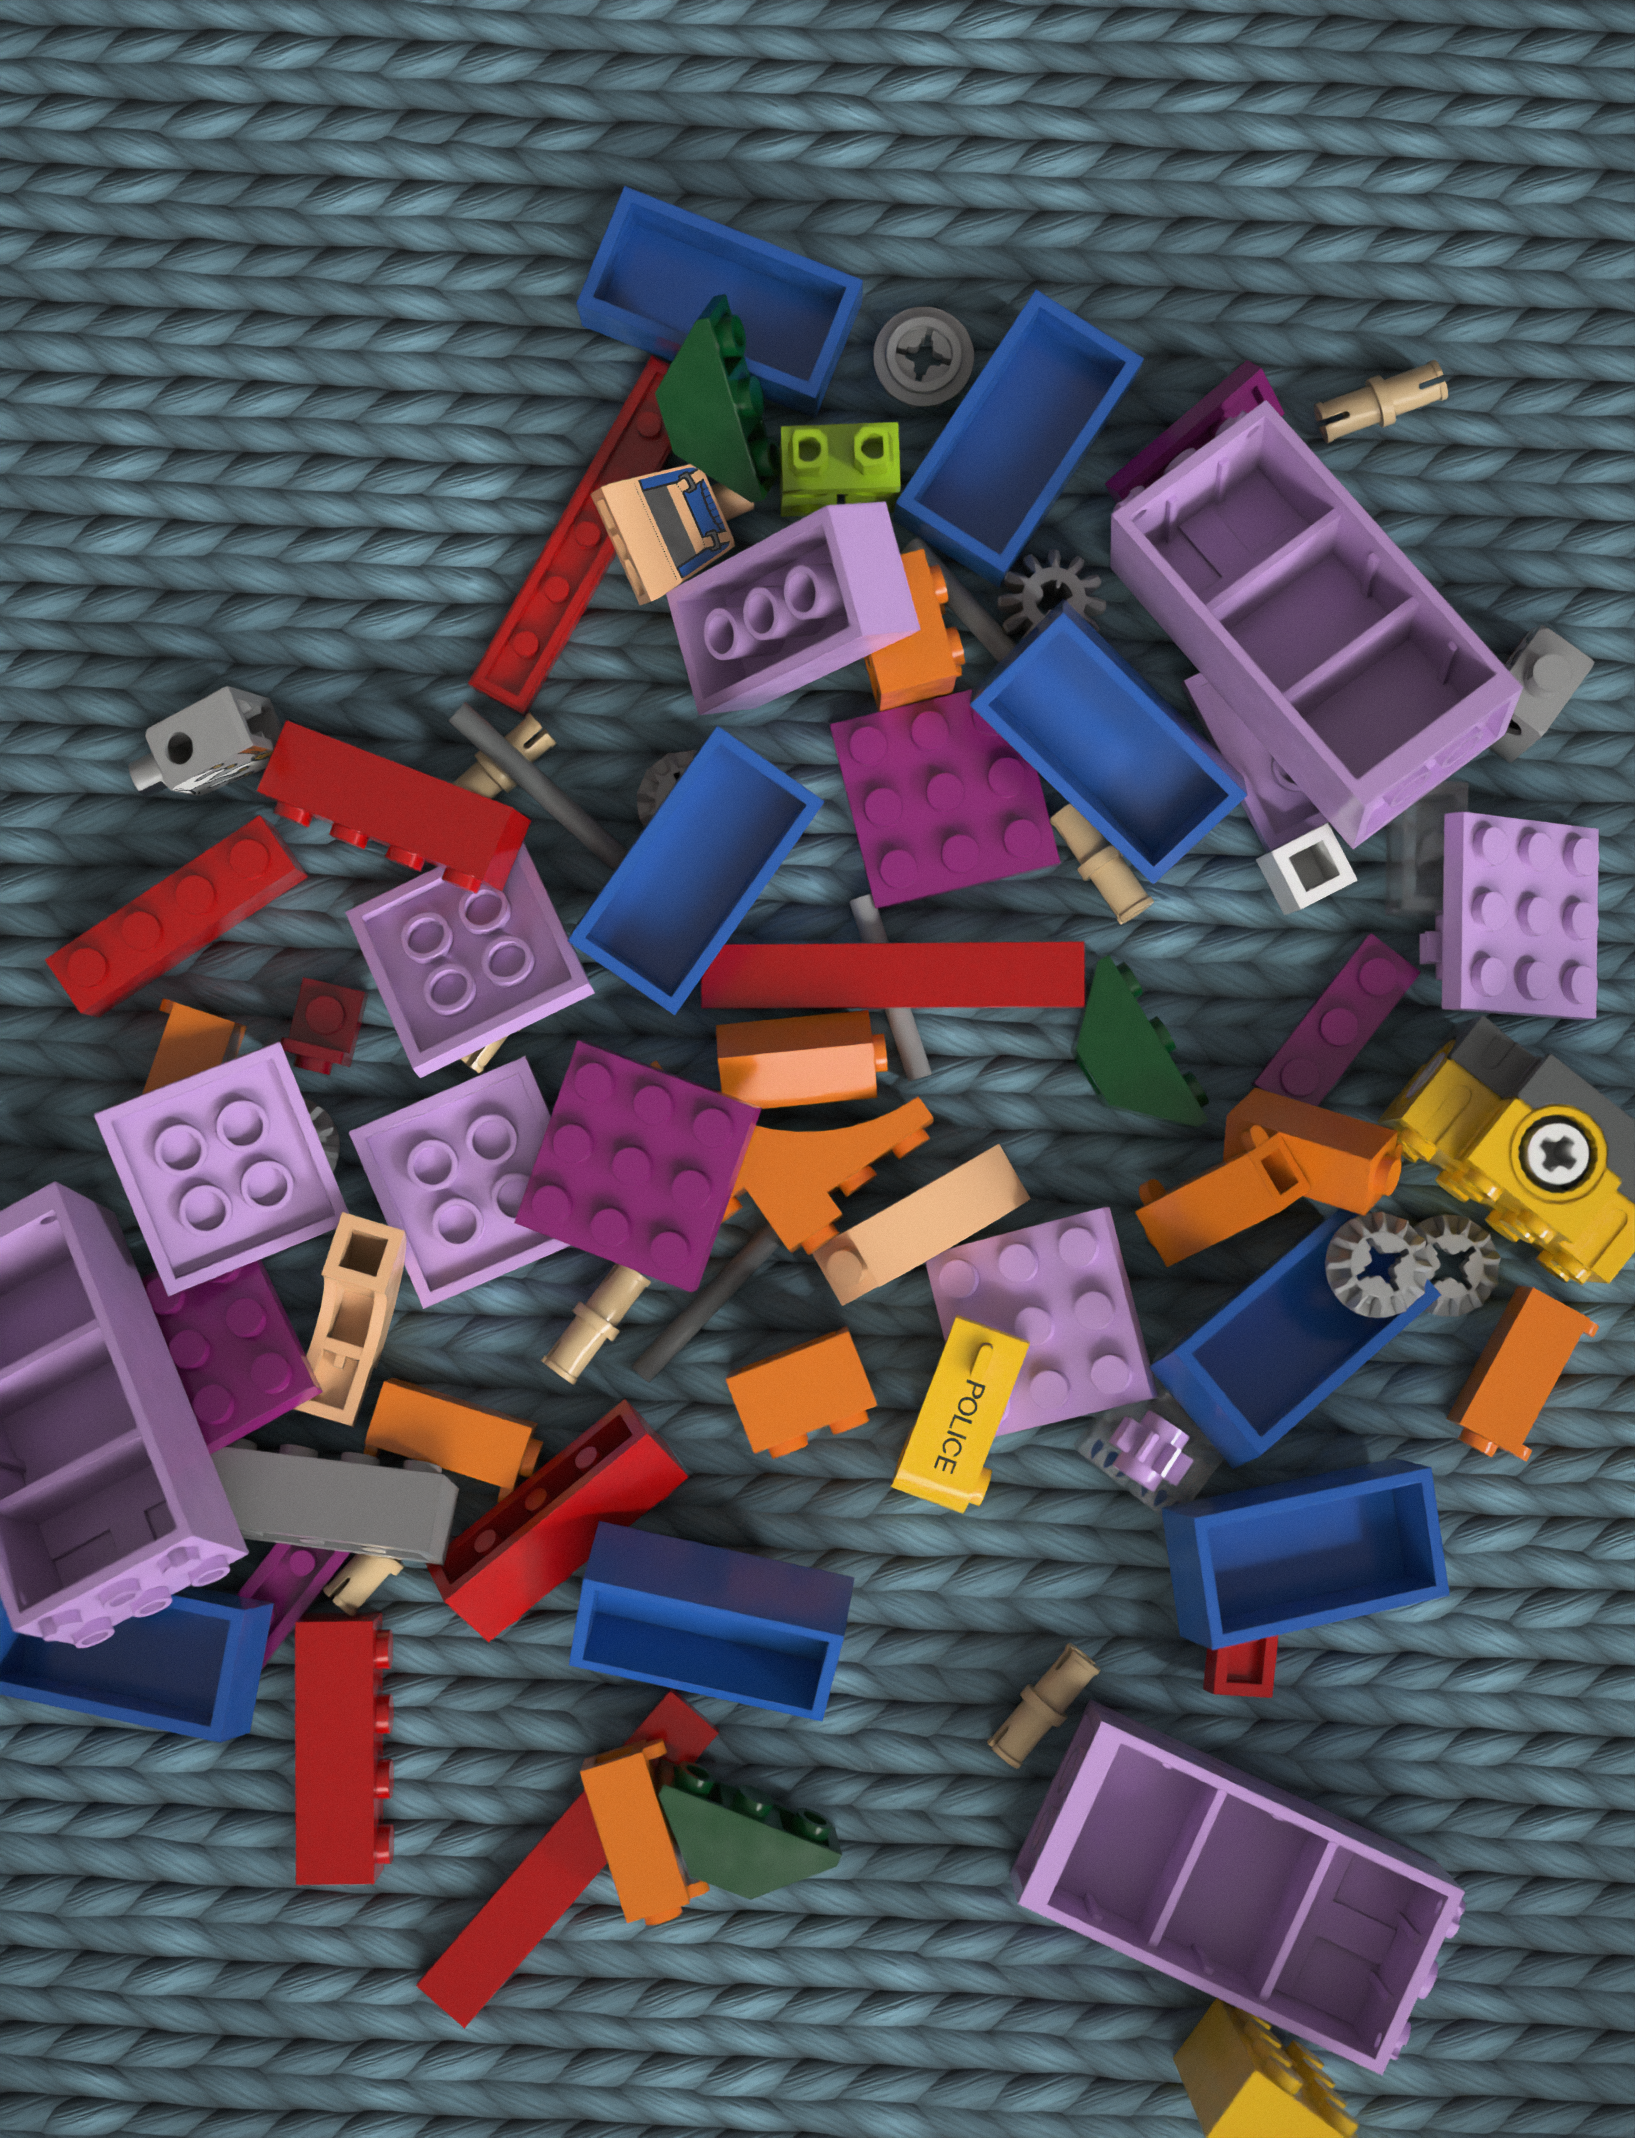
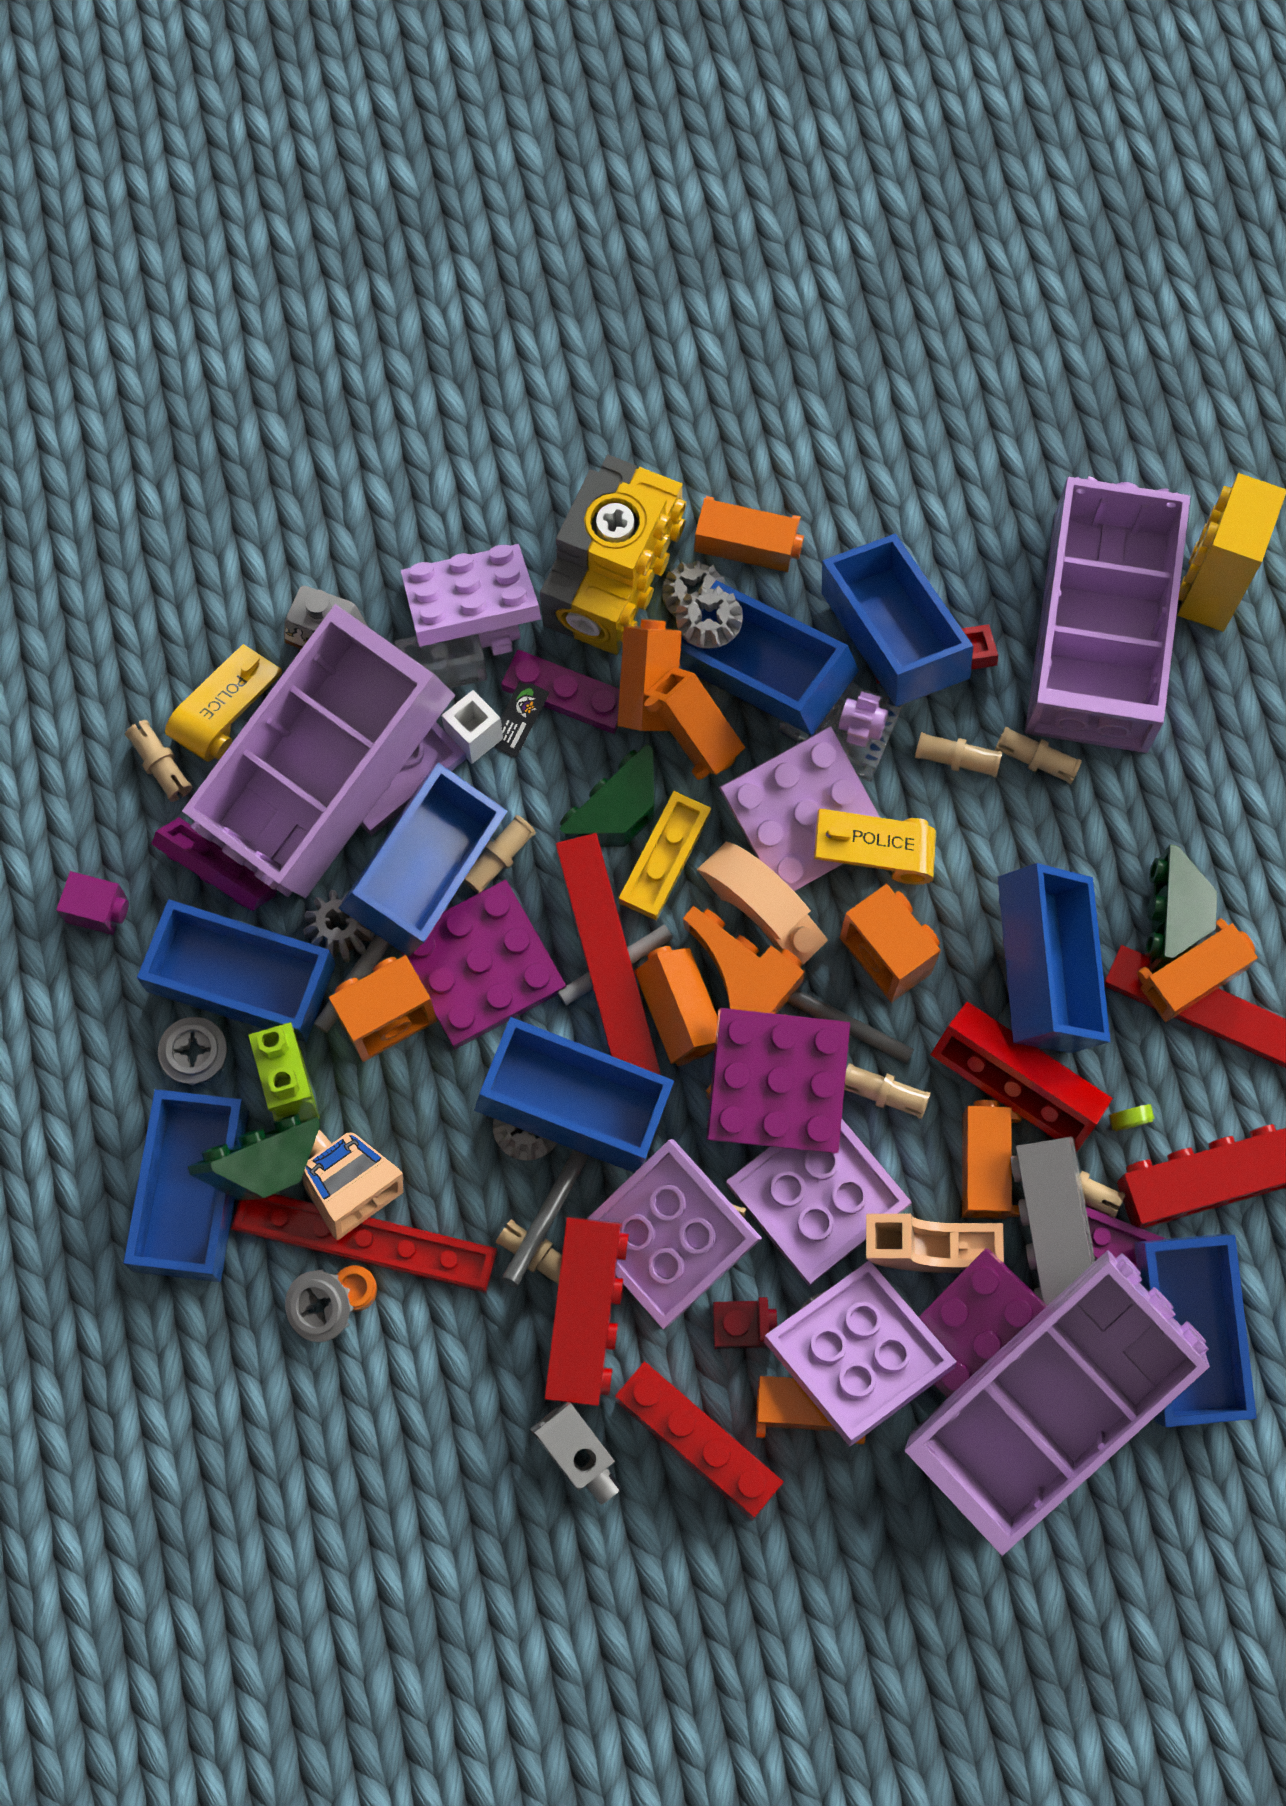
camera: 105 degrees left, 15 degrees down
(459, 1662) = (1131, 1117): none -> lime tile
(484, 443) = (301, 1298): none -> light grey gear
(523, 506) = (361, 1285): none -> orange tile
(793, 608) = (389, 1070): lavender brick -> none
(1035, 1104) = (664, 855): none -> yellow plate
(1076, 1586) = (958, 754): none -> tan pin
(1180, 260) = (92, 903): none -> magenta brick
(1311, 949) = (520, 717): none -> black sticker
(1439, 493) = (206, 715): none -> yellow door

